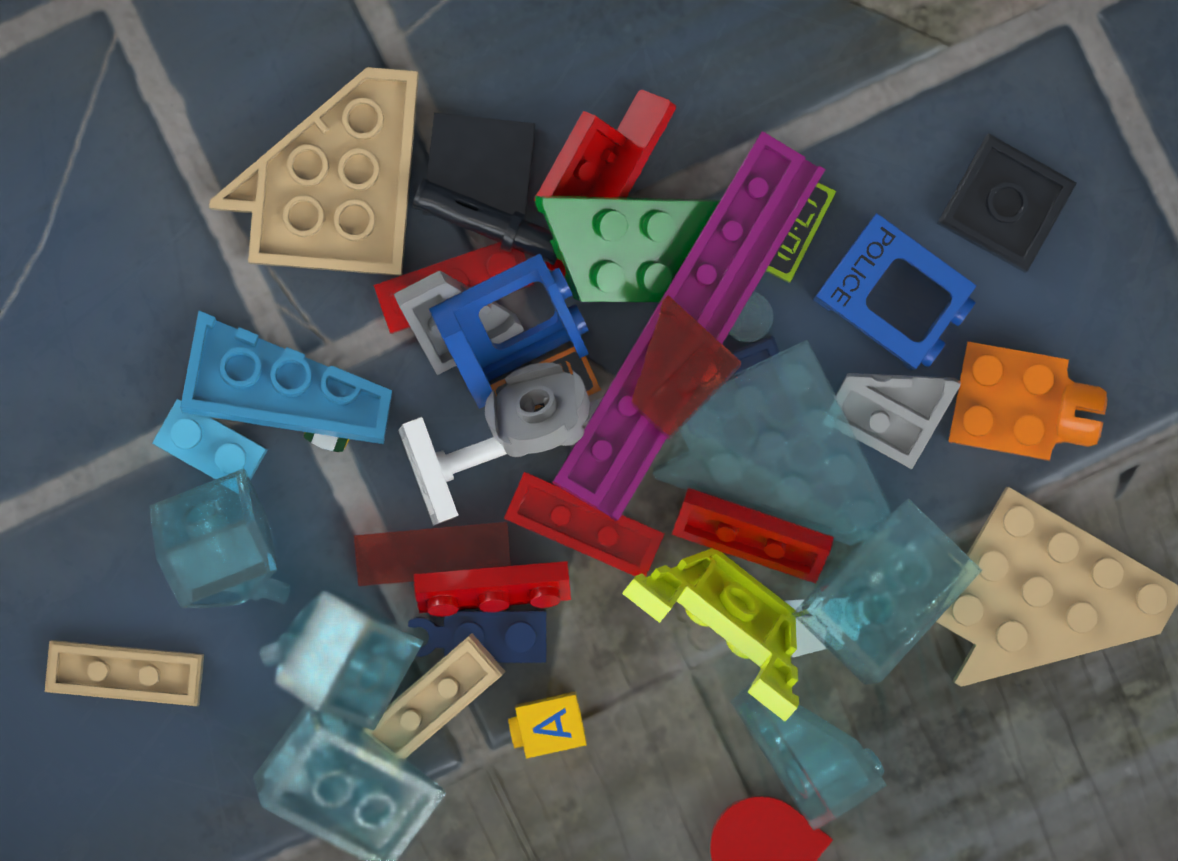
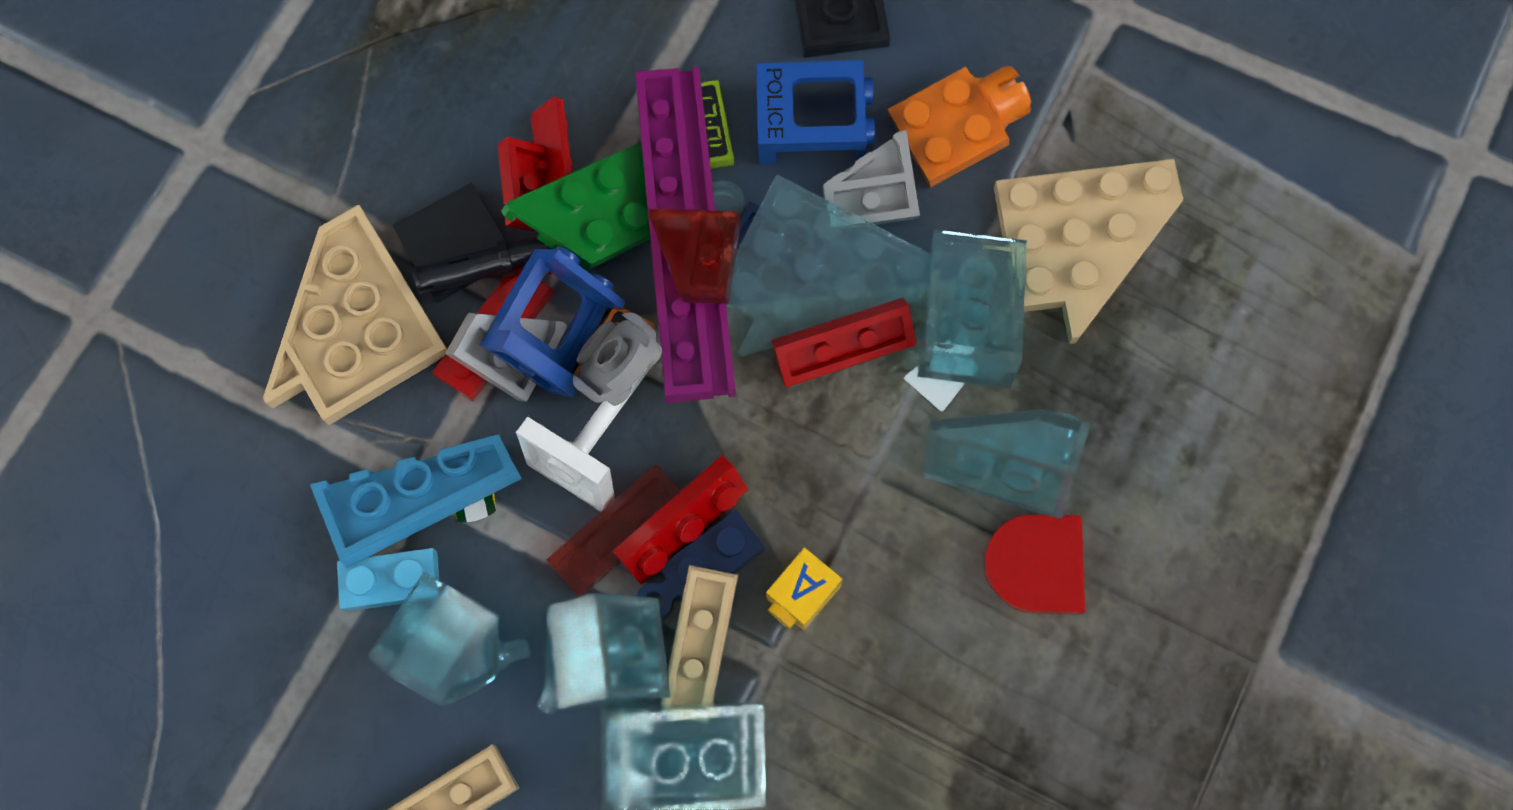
camera: 35 degrees left, 15 degrees down
(579, 526) = (716, 427): red plate -> none
(736, 608) = (892, 395): neon yellow wing -> none

